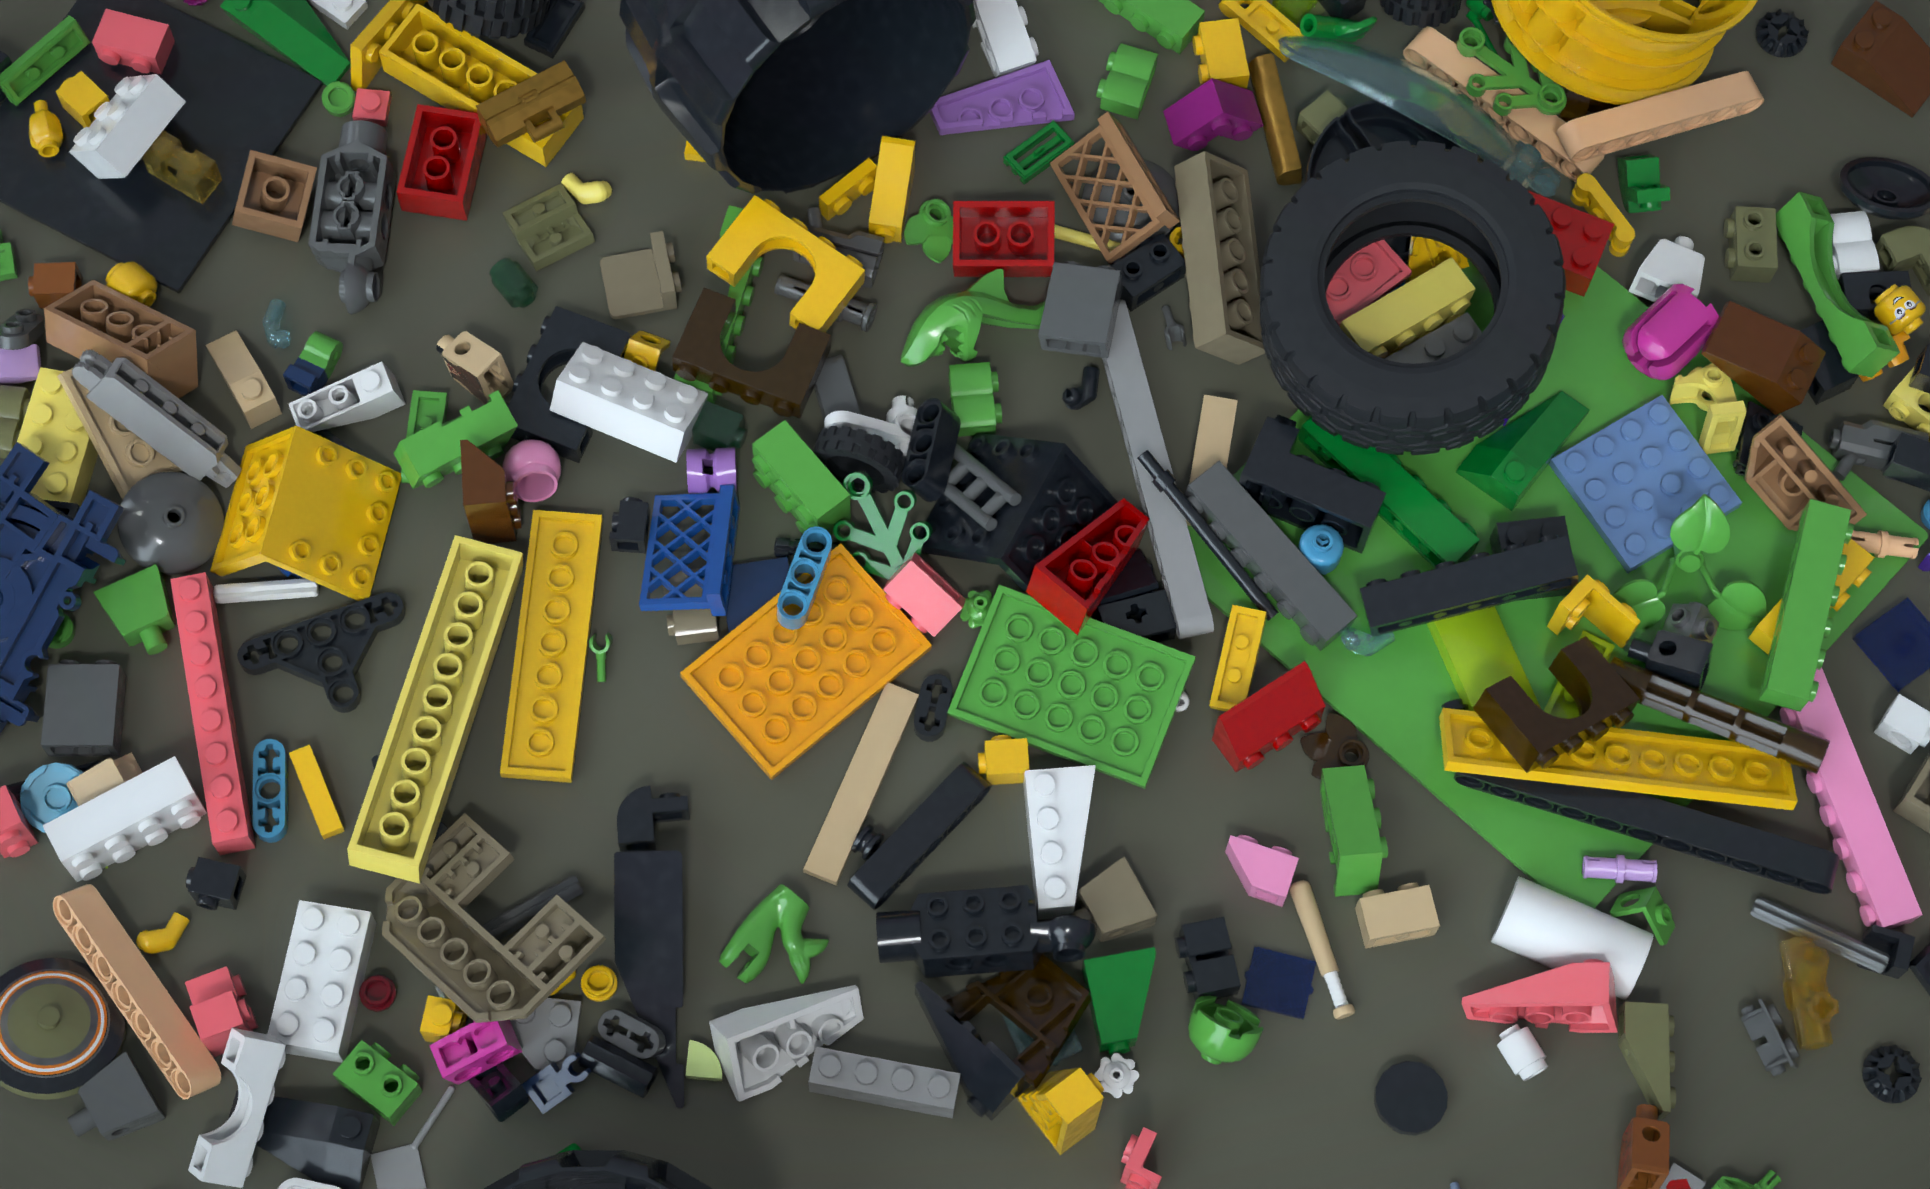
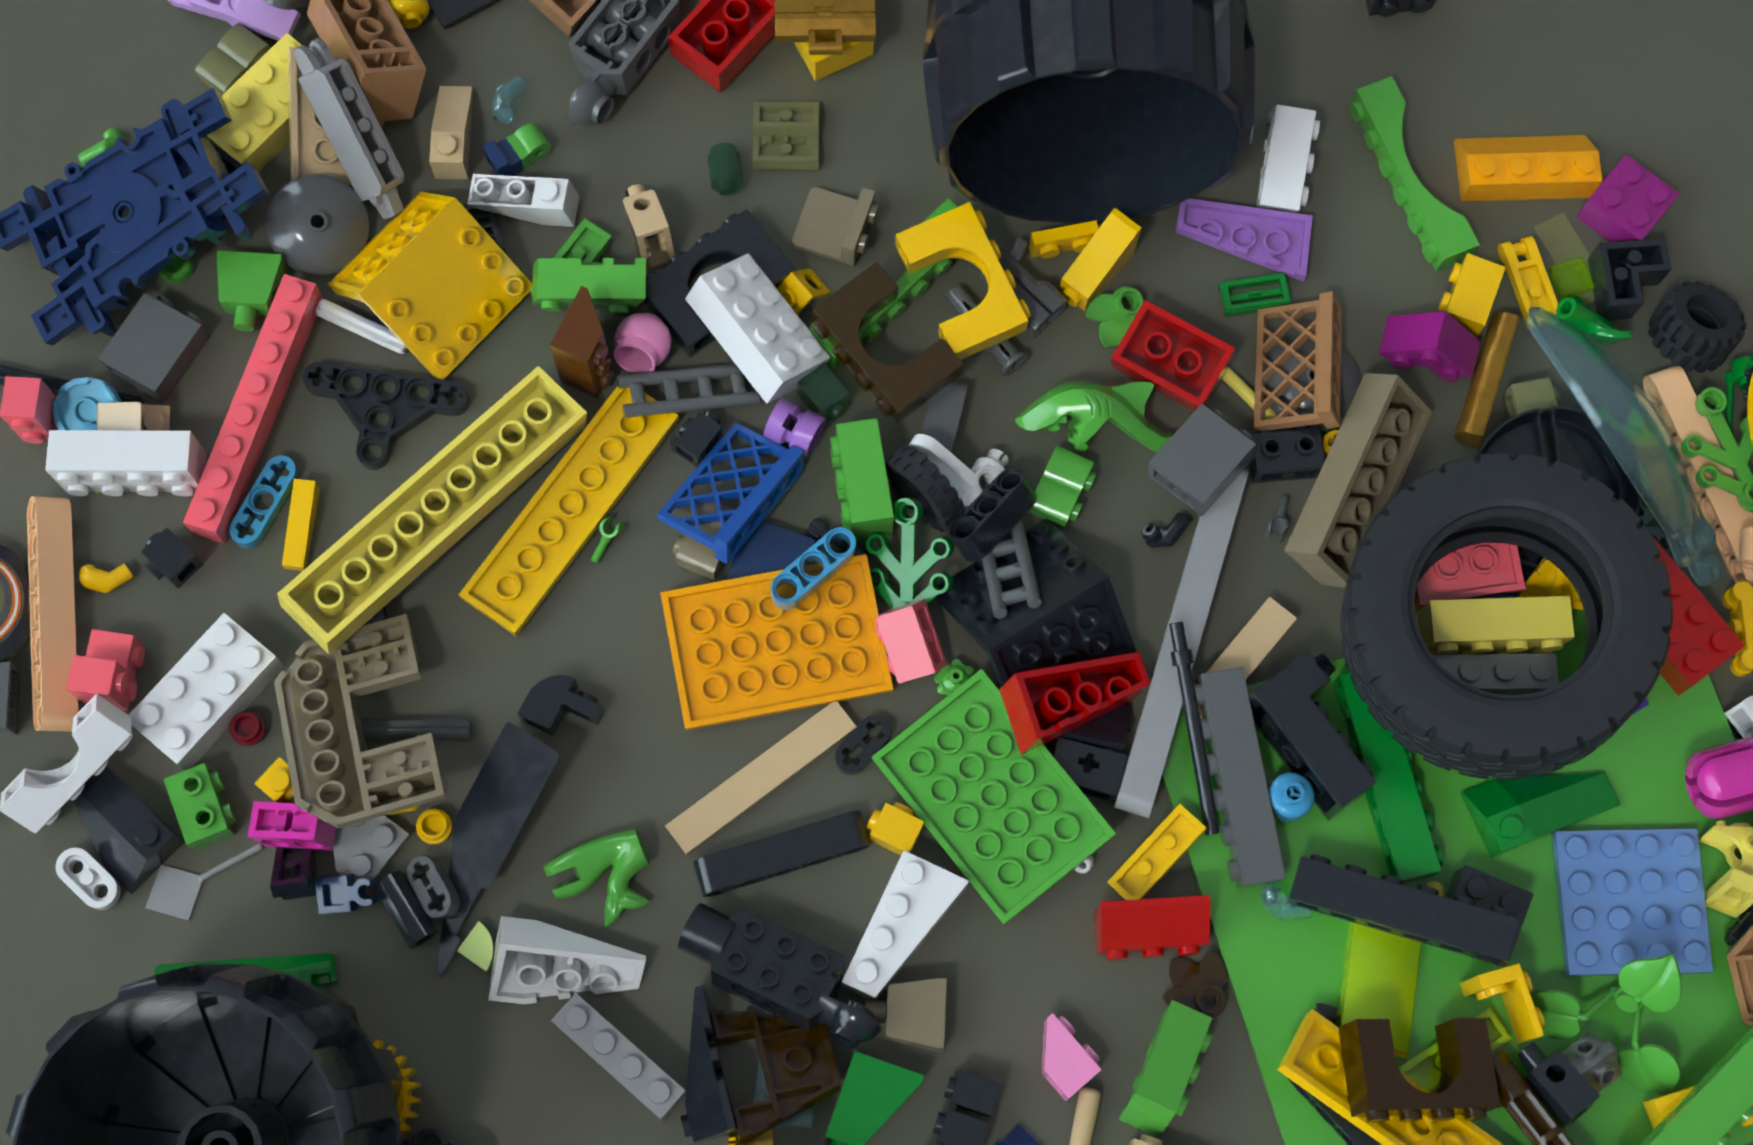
camera: 30 degrees right, 5 degrees up
(587, 192) = (837, 122): light yellow arm -> none
(594, 506) = (673, 403): none -> dark grey bar
(867, 842) = (733, 834): black bush -> none
(1128, 80) = (1372, 272): bright green brick -> none

